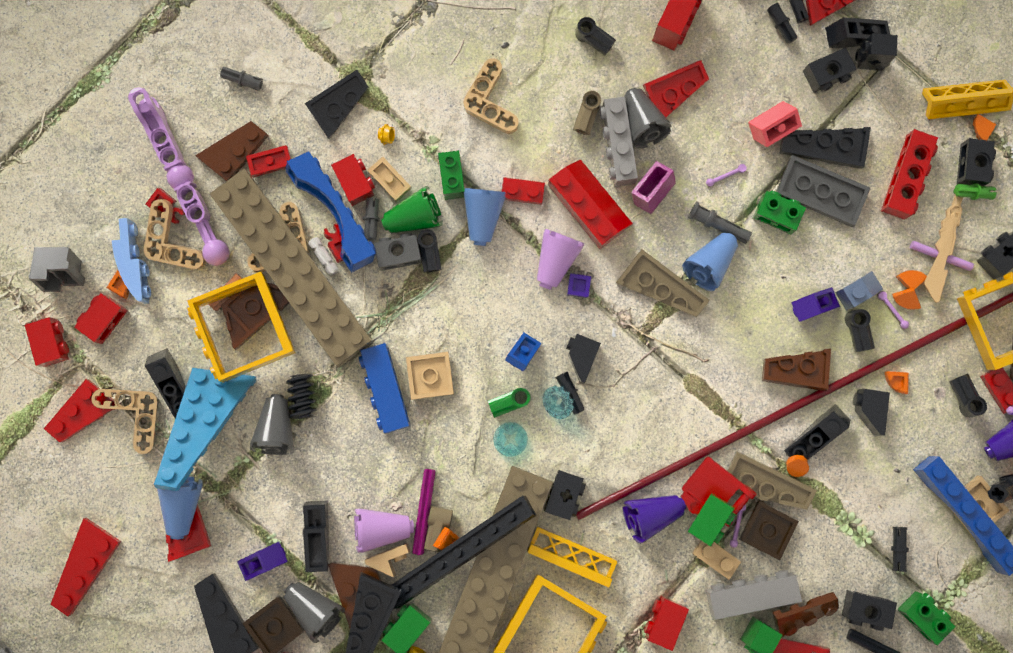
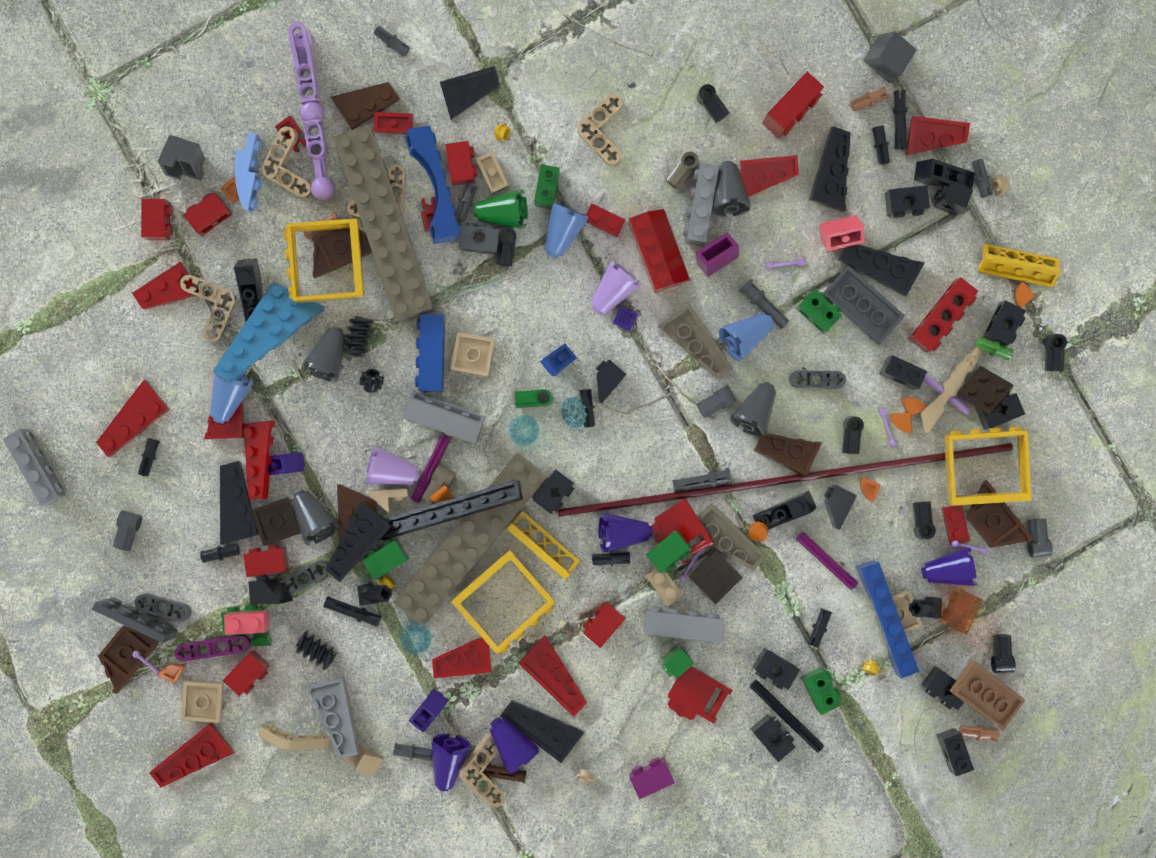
camera: 15 degrees right, 5 degrees up
(112, 601) = (148, 457): none -> black axle
(233, 565) = (257, 447): none -> red wing
(316, 536) = (334, 457): black slope -> none
(323, 256) = (414, 221): white axle -> none
(330, 439) = (371, 380): none -> black gear
(420, 453) = (444, 417): none -> light grey brick
(650, 547) = (611, 558): none -> black axle
(708, 338) = (719, 400): none -> dark grey piece
(728, 425) = (711, 479): none -> dark grey pin
(742, 68) = (831, 178): none -> black wing
(750, 337) = (755, 410): none -> dark grey cone
(798, 617) = (715, 655): reddish brown wing -> none
(814, 274) = (831, 374): none -> dark grey beam
(815, 304) = (822, 400): dark purple slope -> none
(859, 291) = (864, 401): sand blue slope -> none
(881, 473) = (826, 560): none -> magenta axle
(890, 247) = (903, 372): none -> black brick
(897, 23) = (982, 178): none -> dark grey axle
(919, 24) = (1000, 185): none -> tan plate
(970, 574) = (871, 667): none -> yellow plate
(983, 237) = (985, 390): none -> dark brown plate

